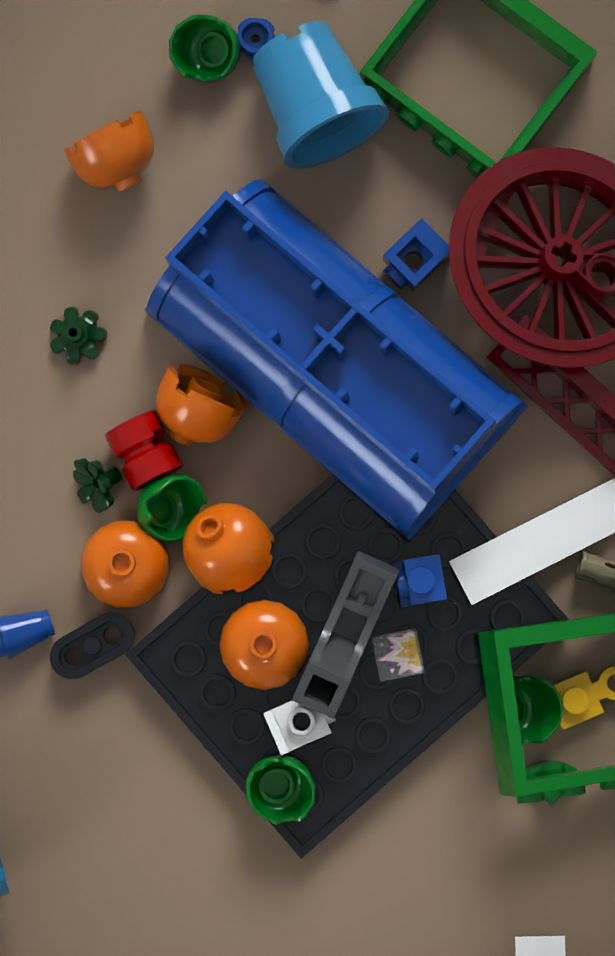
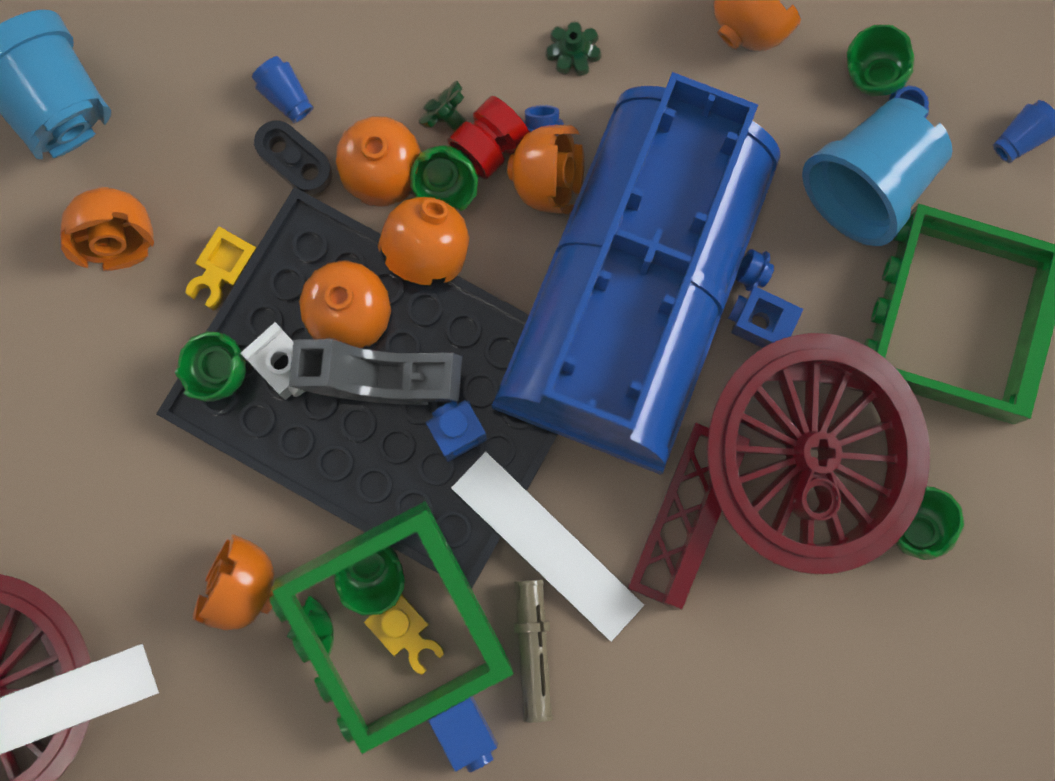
camera: 65 degrees right, 5 degrees down
(101, 847) = (106, 229): none -> orange cylinder
(141, 392) = (541, 116): none -> blue plate
(172, 745) = (223, 263): none -> yellow plate
(363, 245) = (755, 269): none -> blue plate
(398, 655) = (378, 435): clear tile -> none
(492, 834) = (236, 586): none -> orange cylinder

